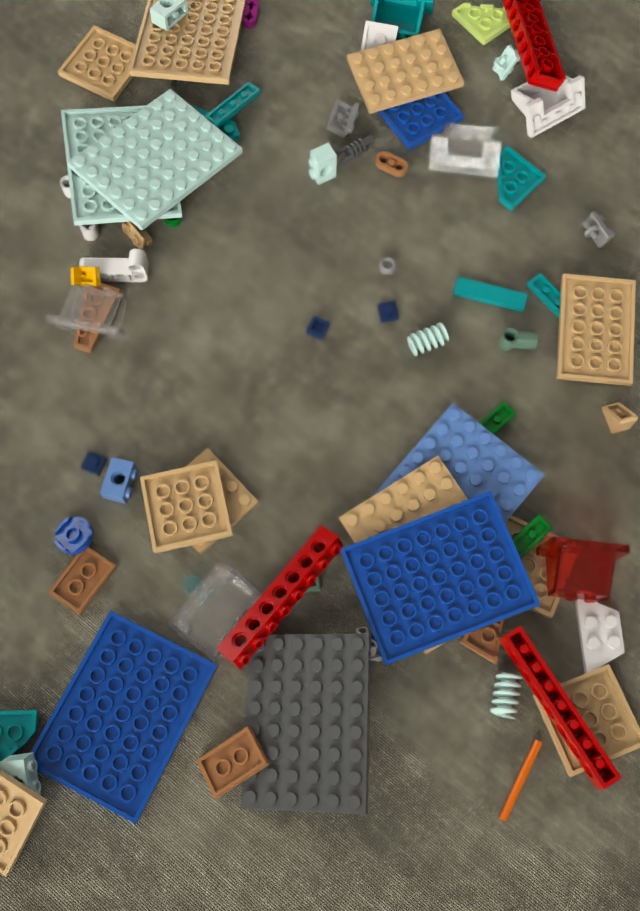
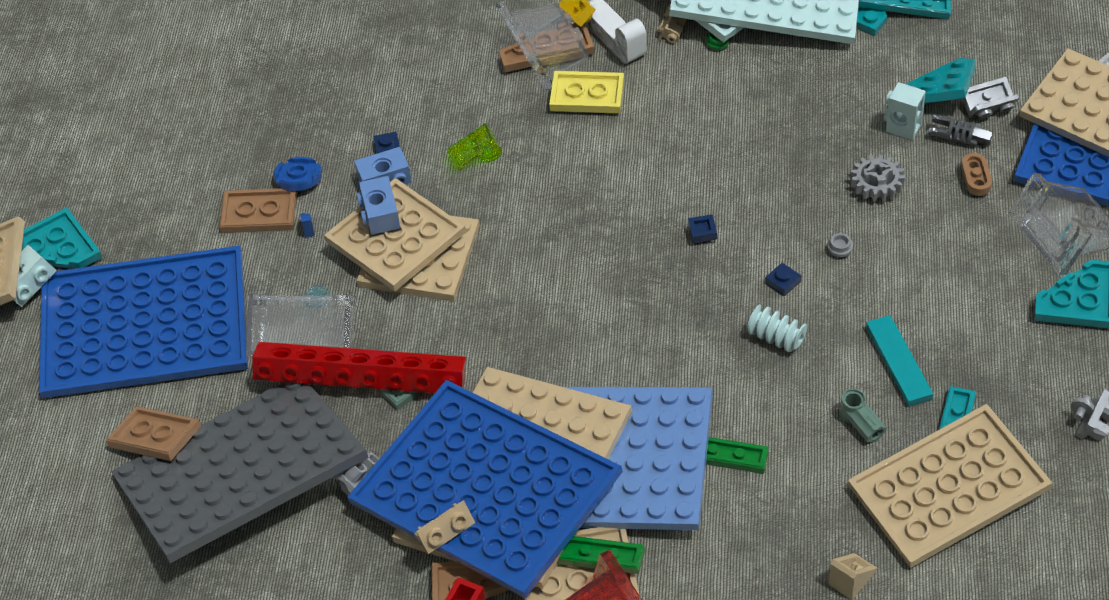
camera: 60 degrees right, 20 degrees down
(123, 555) = (307, 225): none -> blue tile
(147, 408) = (478, 143): none -> clear neon green plate
(153, 318) = (587, 92): none -> light yellow plate
(153, 494) = (379, 205): none -> medium blue brick
(312, 132) = (947, 81): none -> teal plate
(356, 211) = (877, 177): none -> light grey gear
(461, 630) = (445, 527): none -> tan hinge

